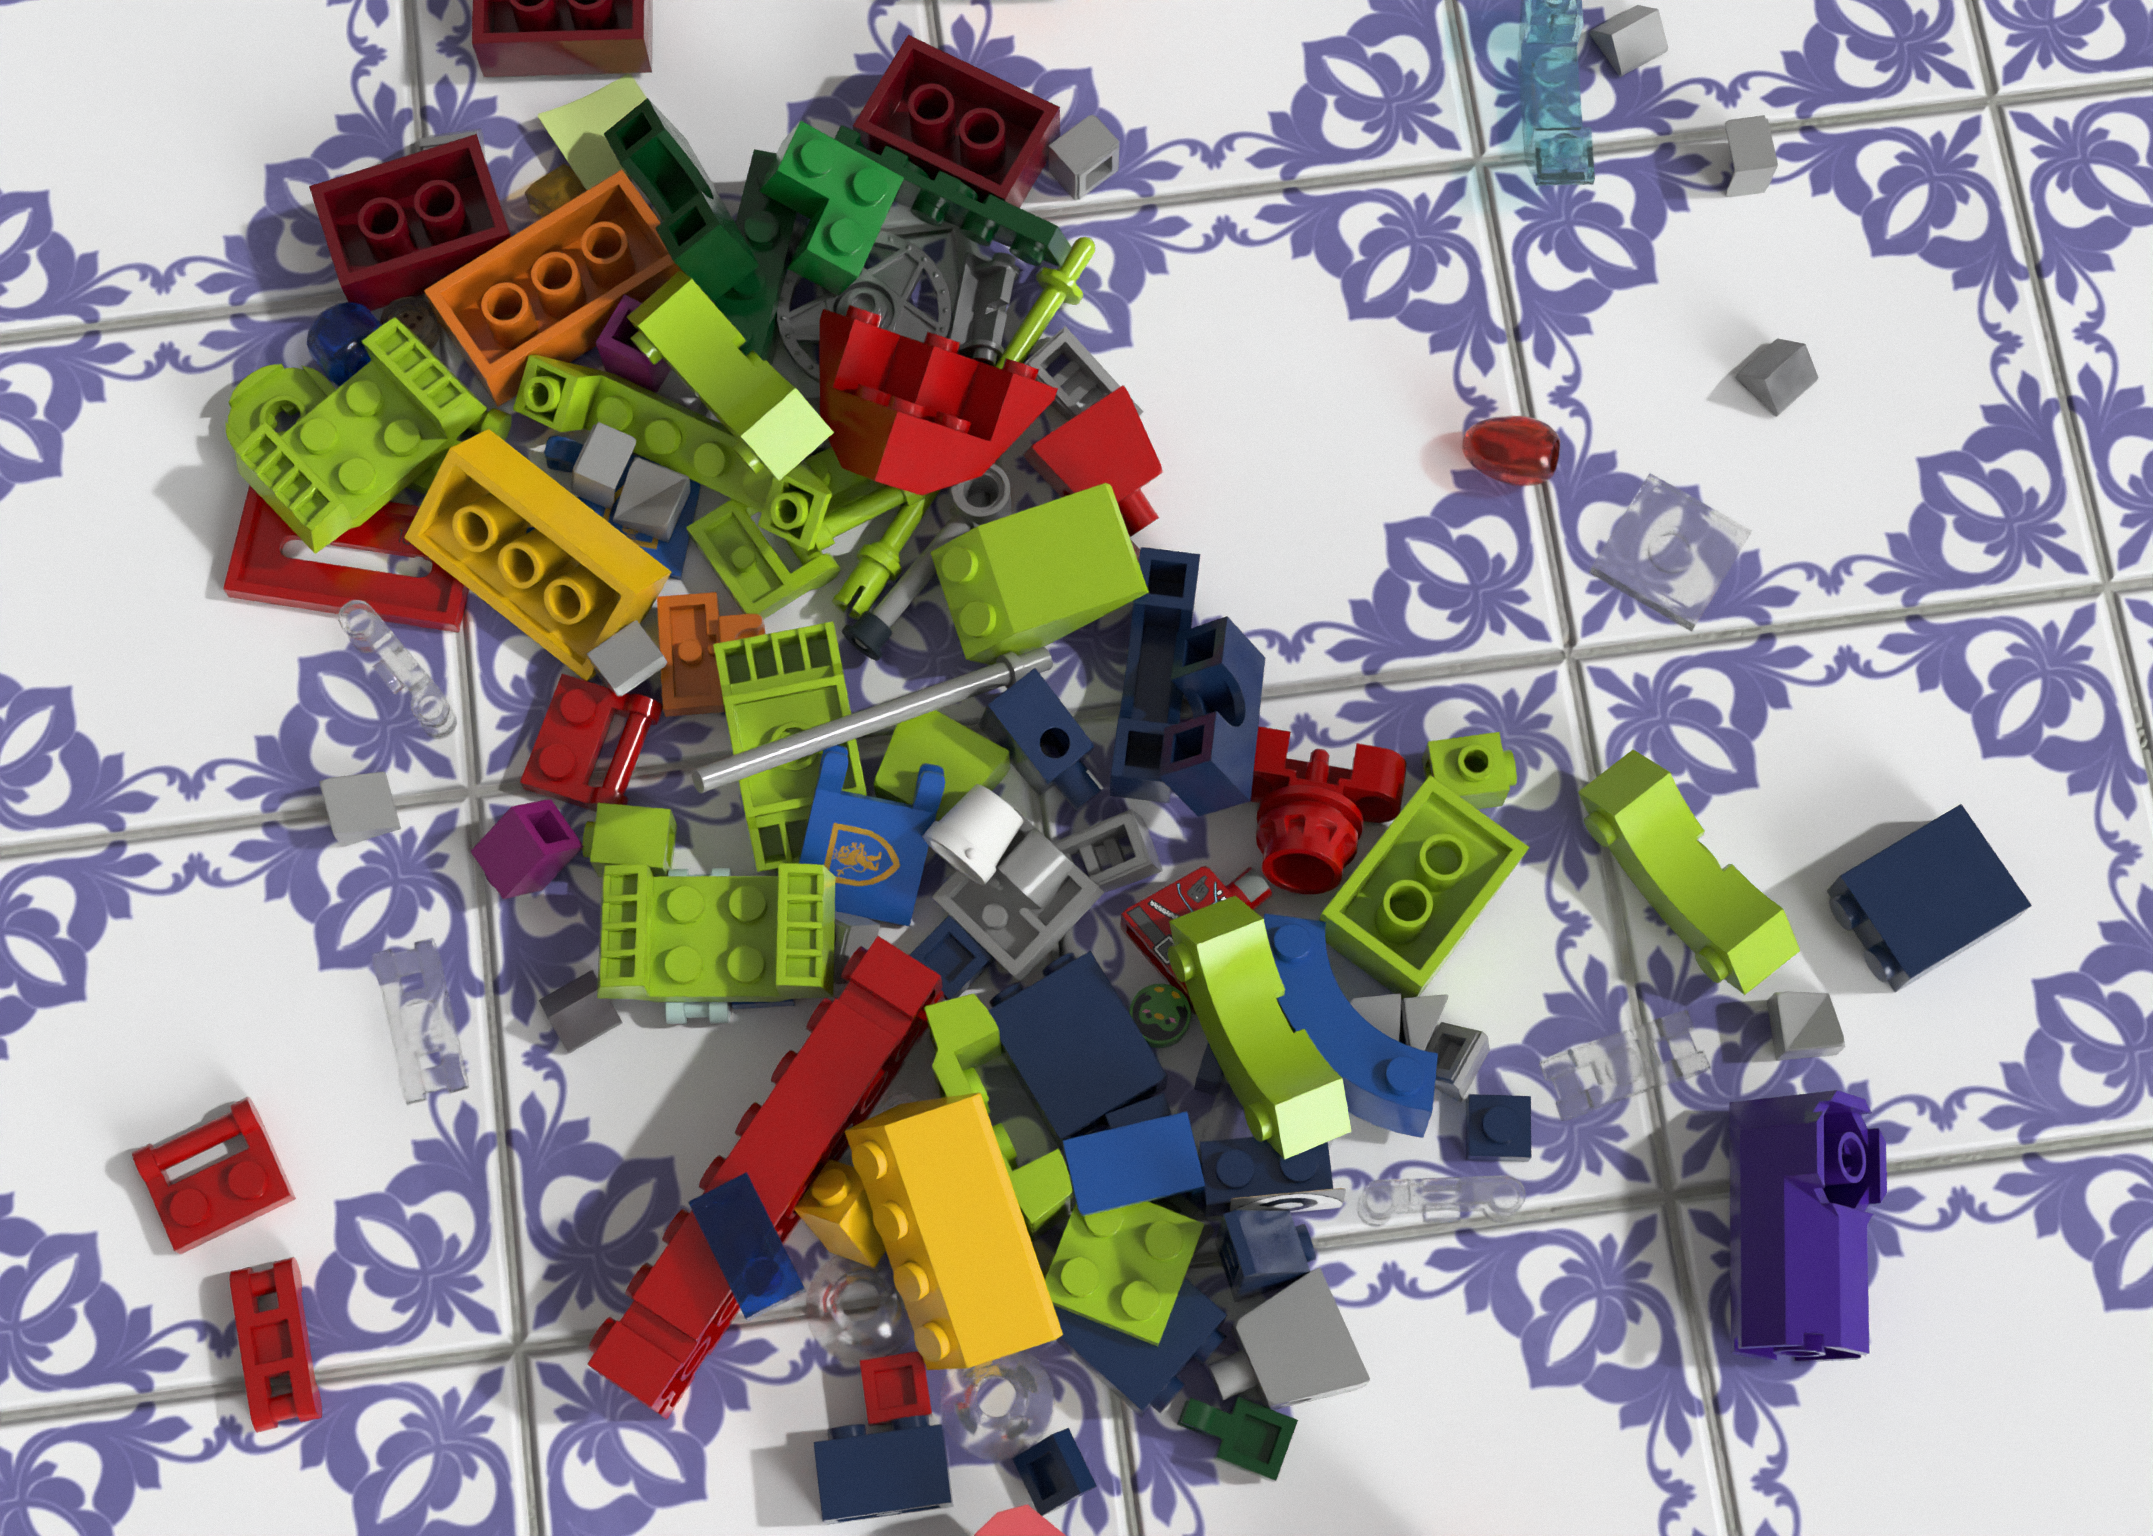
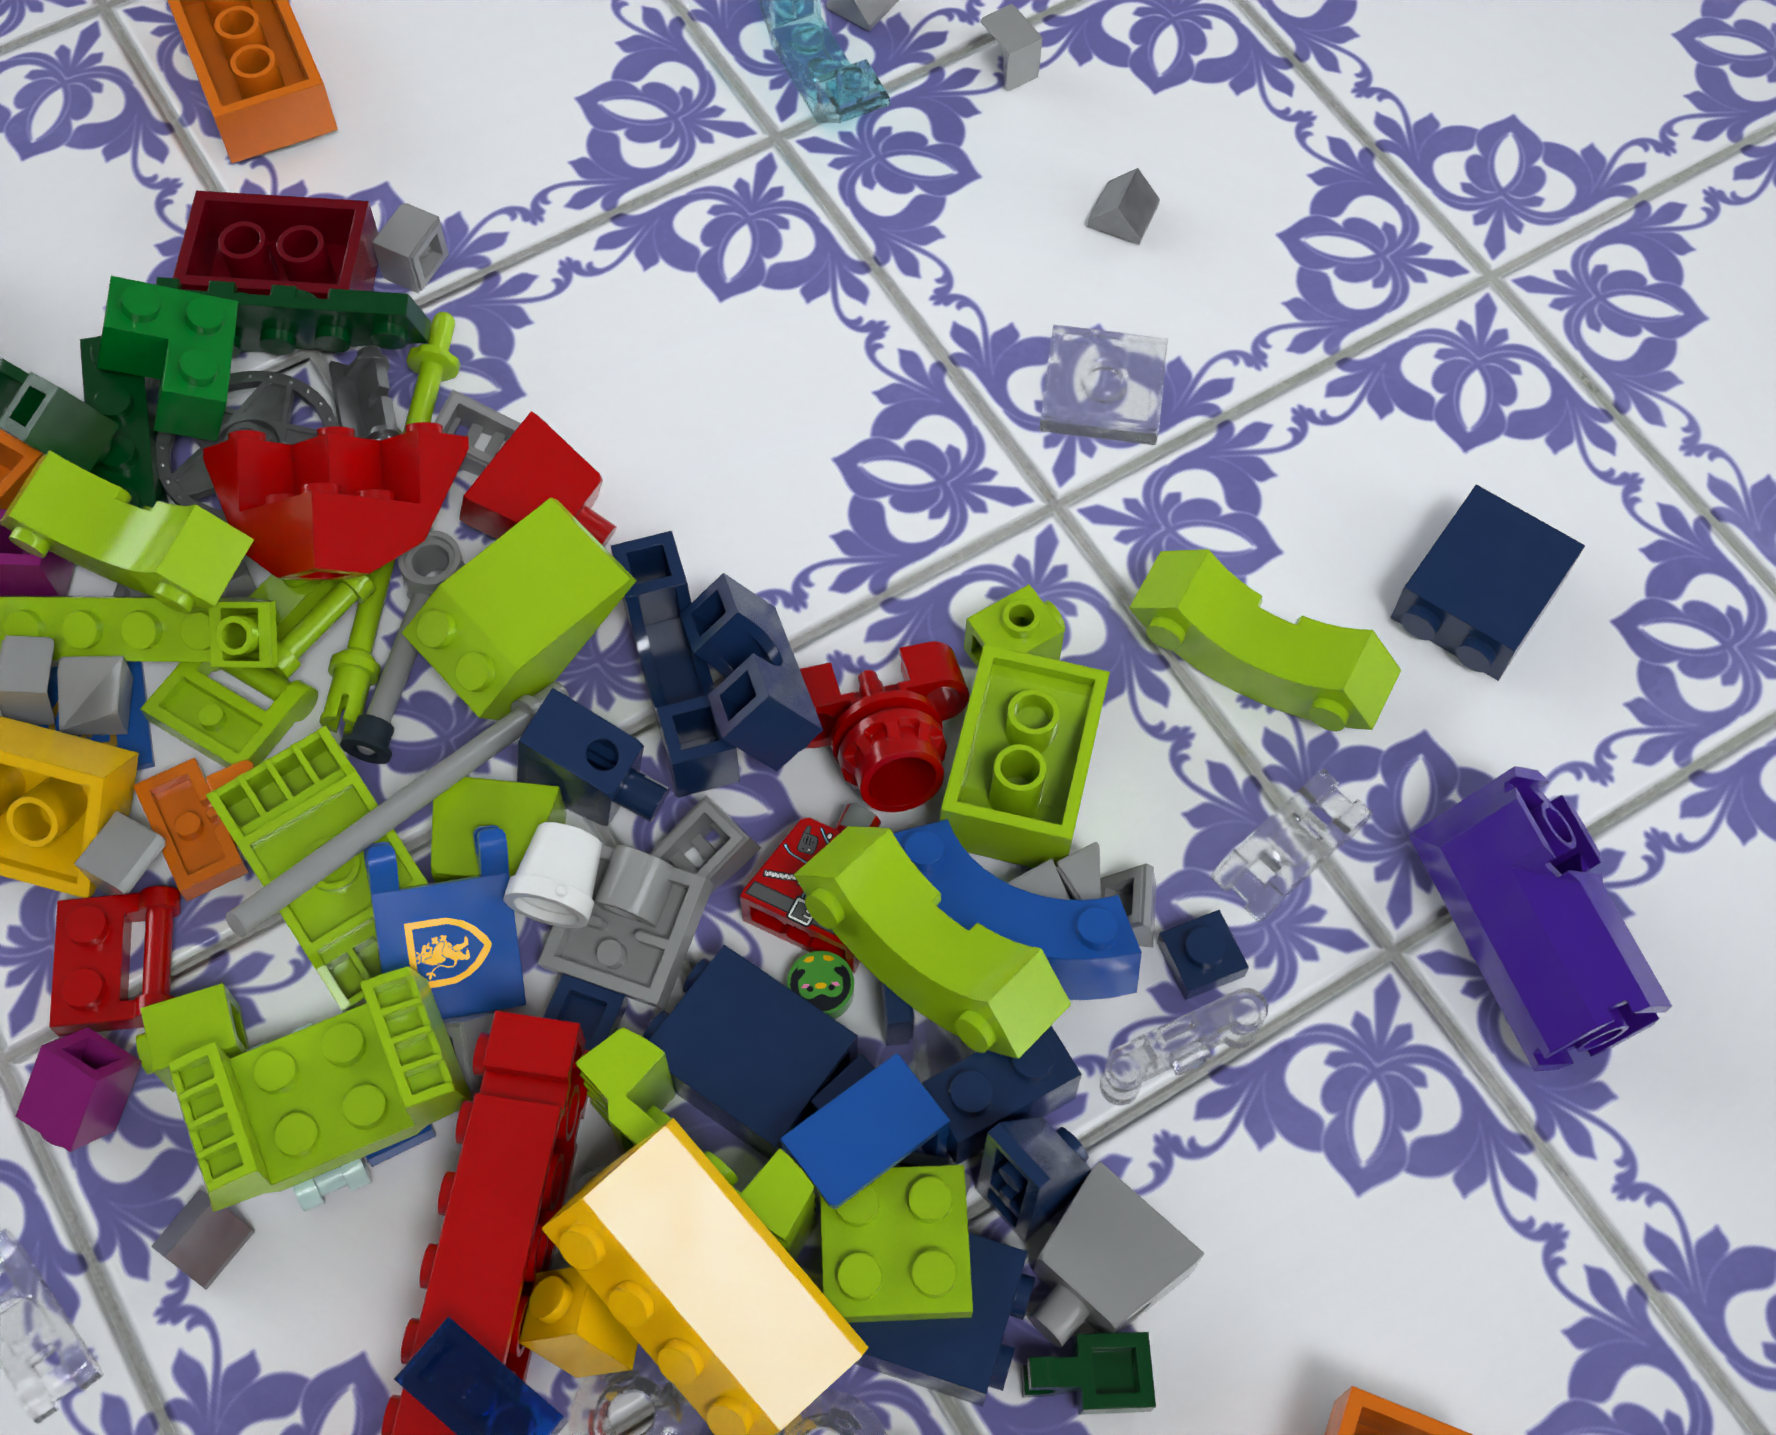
camera: 25 degrees left, 10 degrees down
(1292, 1201) = (1047, 1101): sticker -> none
(1513, 449) = (921, 346): clear red animal -> none
(1804, 1025) = (1436, 740): light grey slope -> none

